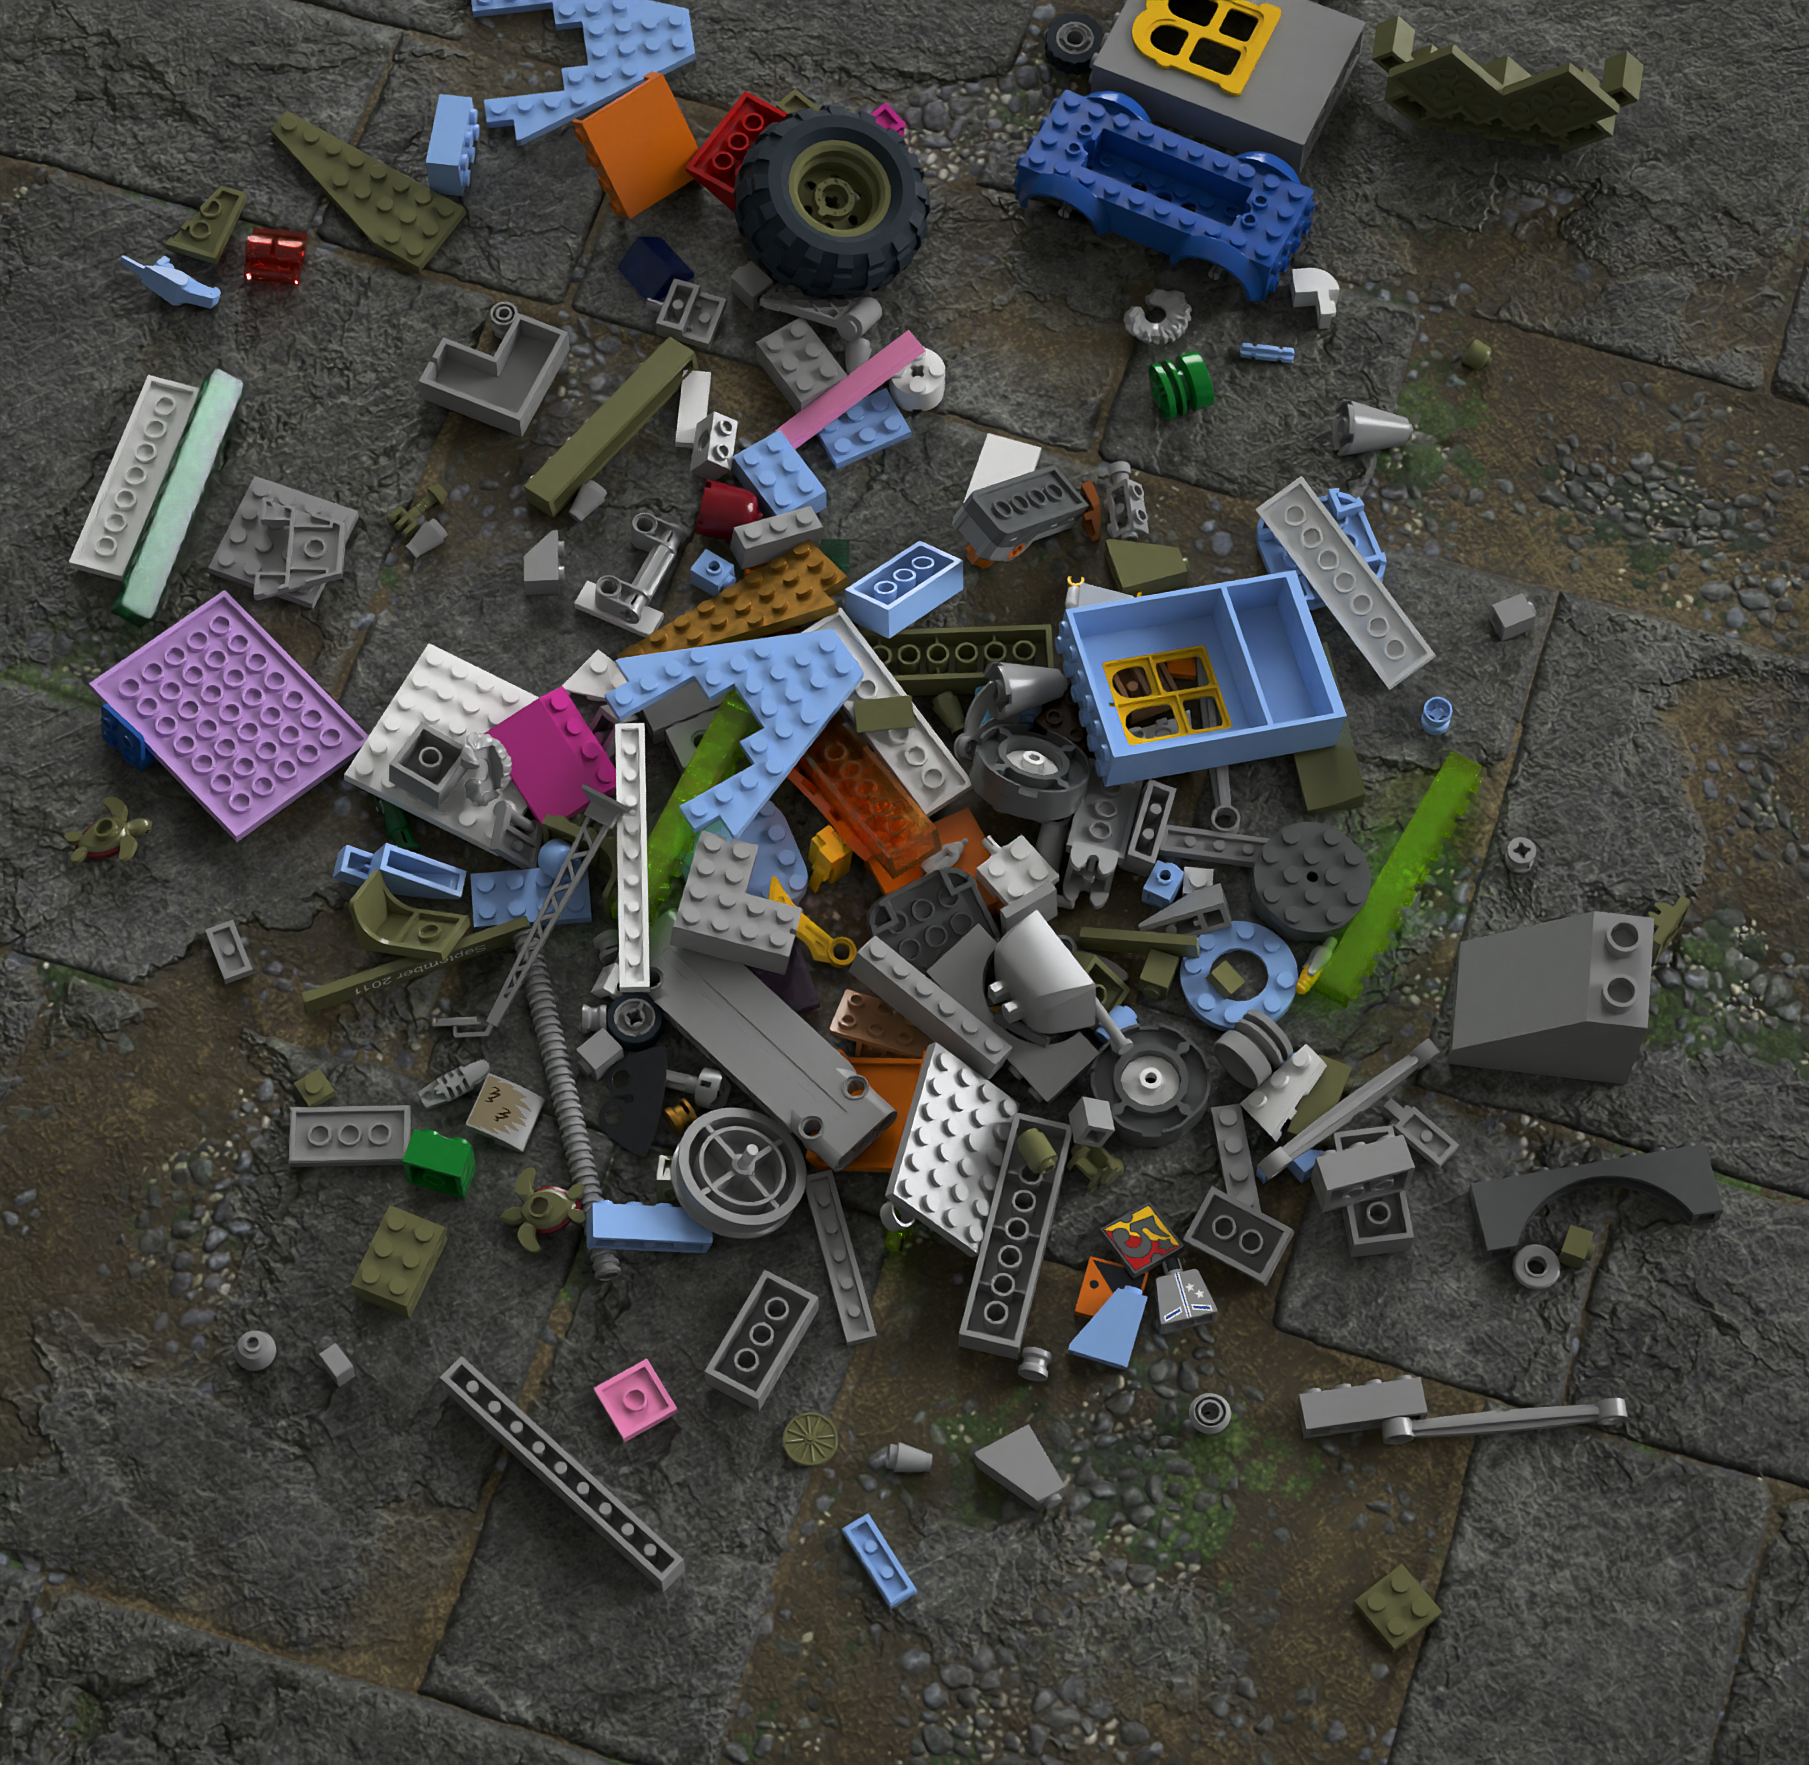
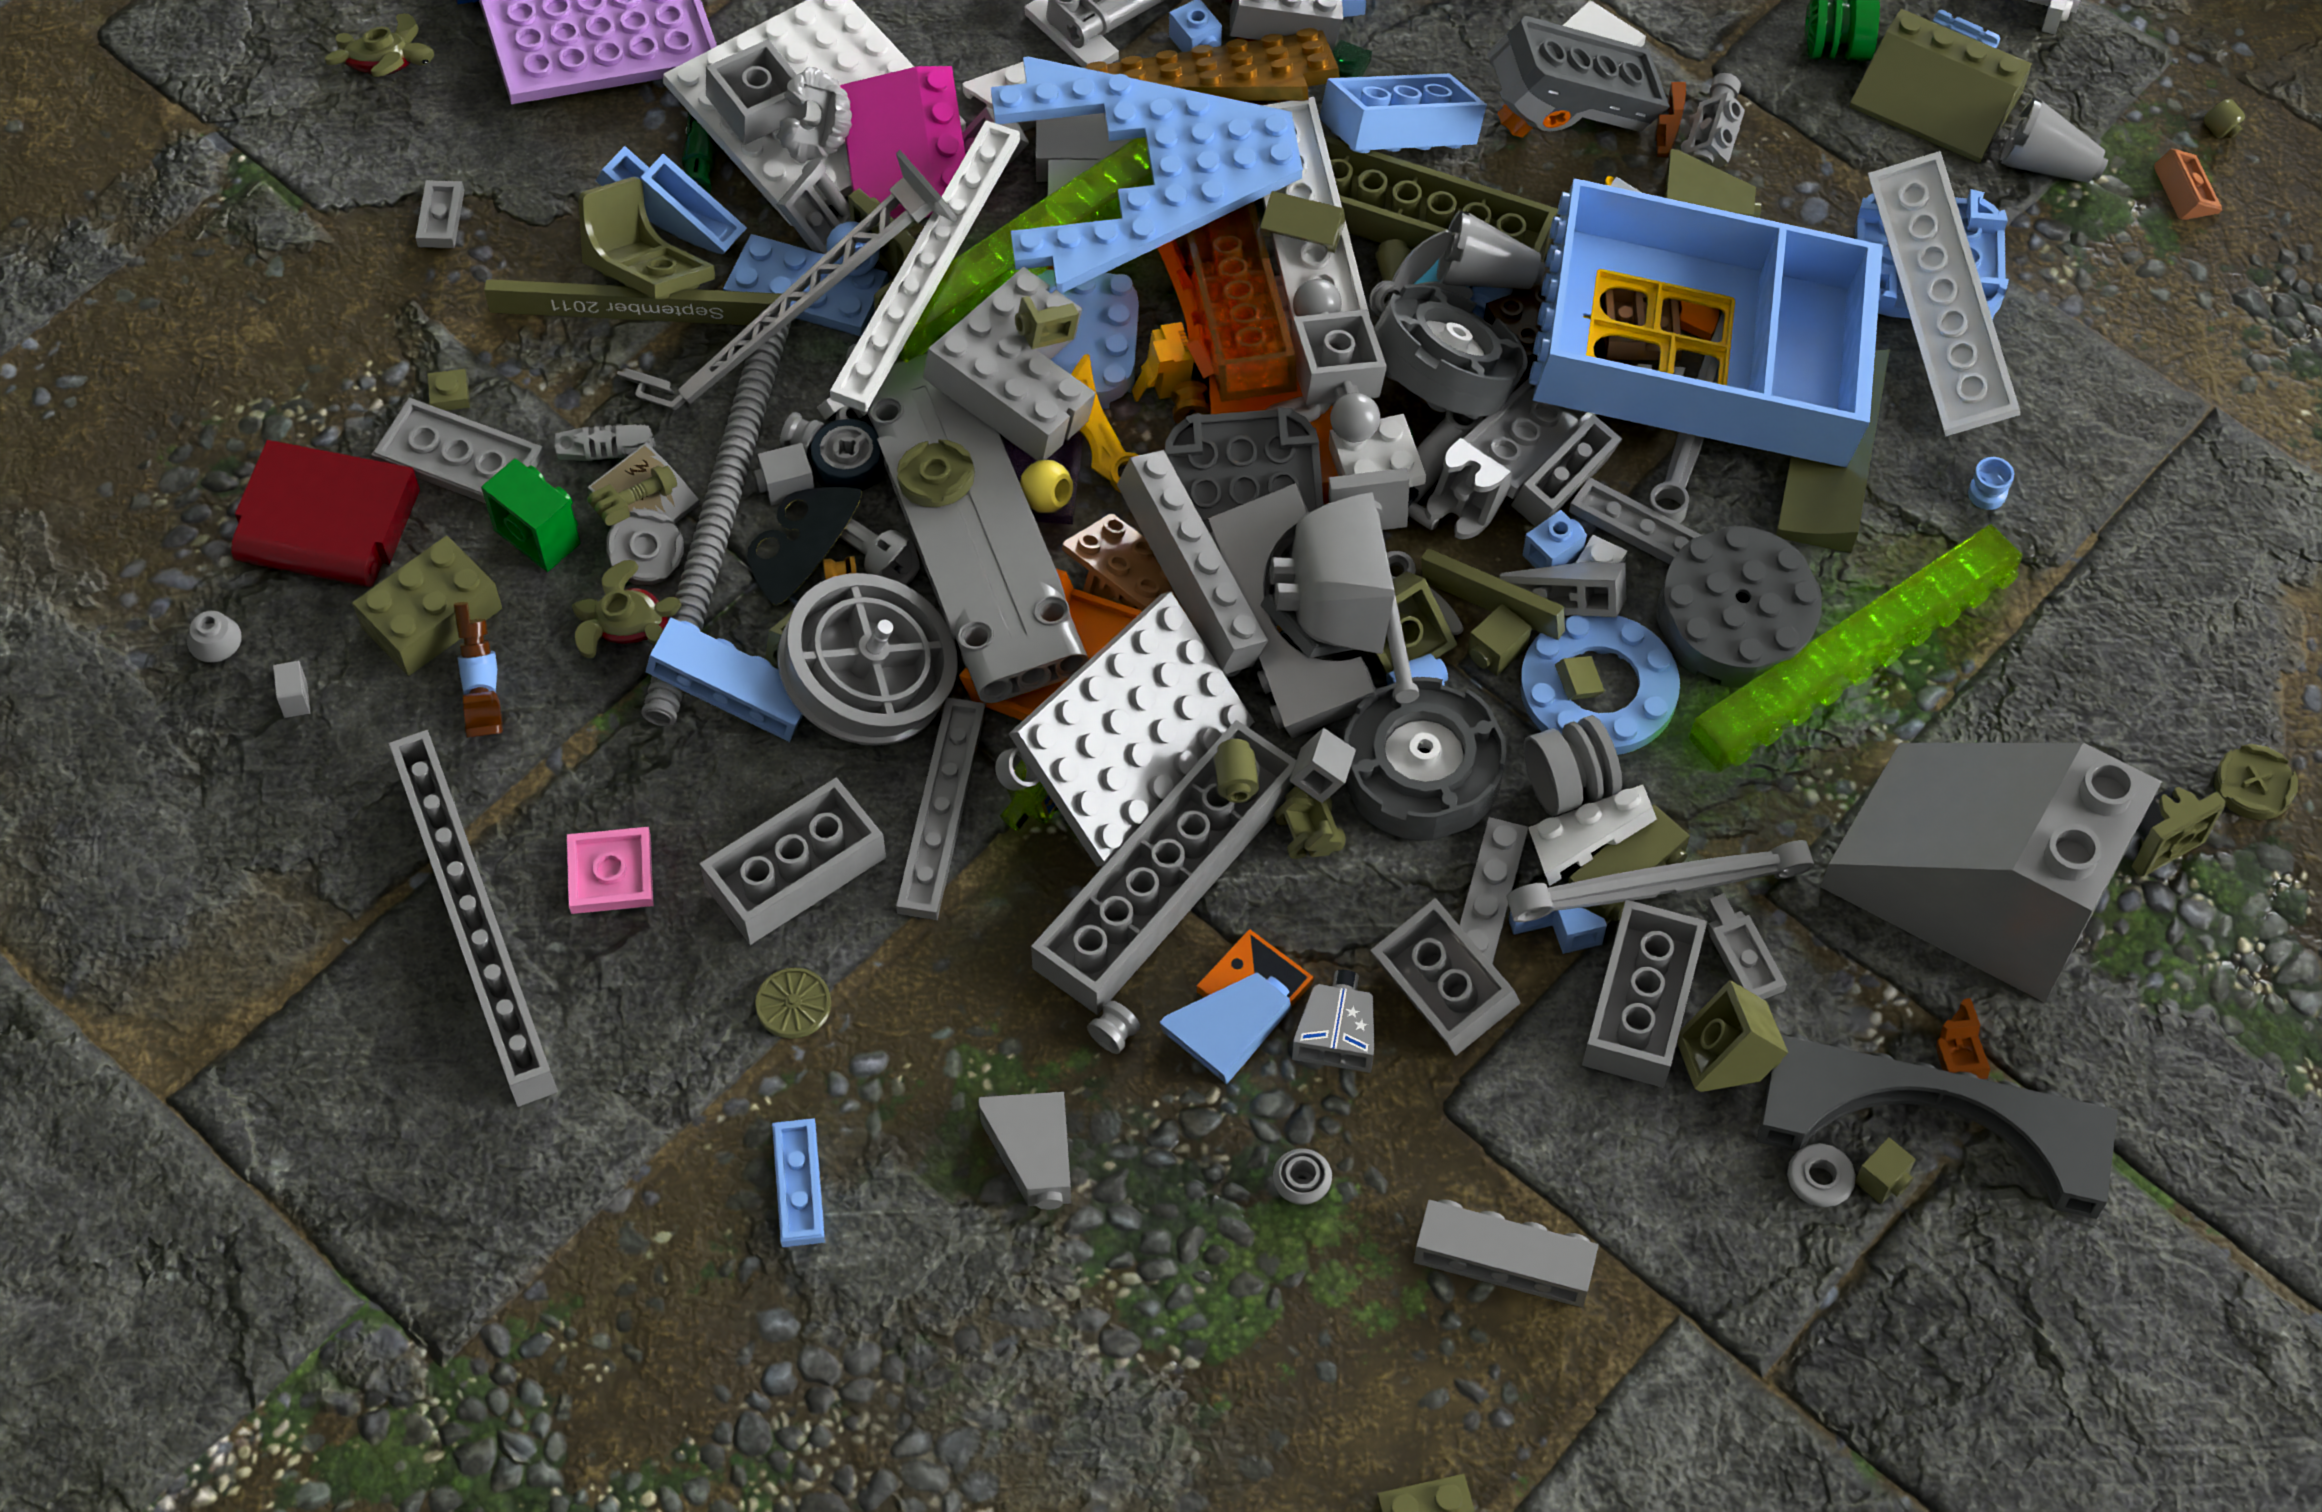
camera: 25 degrees right, 5 degrees down
(281, 1224) = (323, 513): none -> dark red piece
(465, 1300) = (477, 676): none -> reddish brown piece
(496, 1130) = (614, 505): none -> olive hinge
(528, 1147) = (650, 542): none -> light grey tile
(716, 1014) = (935, 473): none -> olive tile
(748, 875) = (1046, 326): none -> olive bracket
(796, 990) = (1046, 486): none -> light yellow piece
(859, 881) = (1189, 399): none -> pearl gold wheel
(907, 1459) = (897, 1074): light grey cone -> none
(961, 814) = (1337, 359): none -> light grey brick
(1141, 1240) = (1322, 935): tile -> none
(1269, 408) = (1941, 85): none -> olive slope
(1315, 965) = (1695, 706): piece -> none
(1362, 1172) = (1635, 954): light grey brick -> none
(1443, 1201) = (1731, 1040): none -> olive slope
(1472, 420) = (2187, 185): none -> nougat slope
(1512, 616) = (2139, 409): light grey brick -> none
(1515, 860) = (2017, 680): light grey wheel -> none
(1585, 1139) = (1960, 1045): none -> dark orange slope
(1604, 1412) = (1830, 1394): light grey piece -> none
(1697, 868) = (2256, 782): none -> olive tile

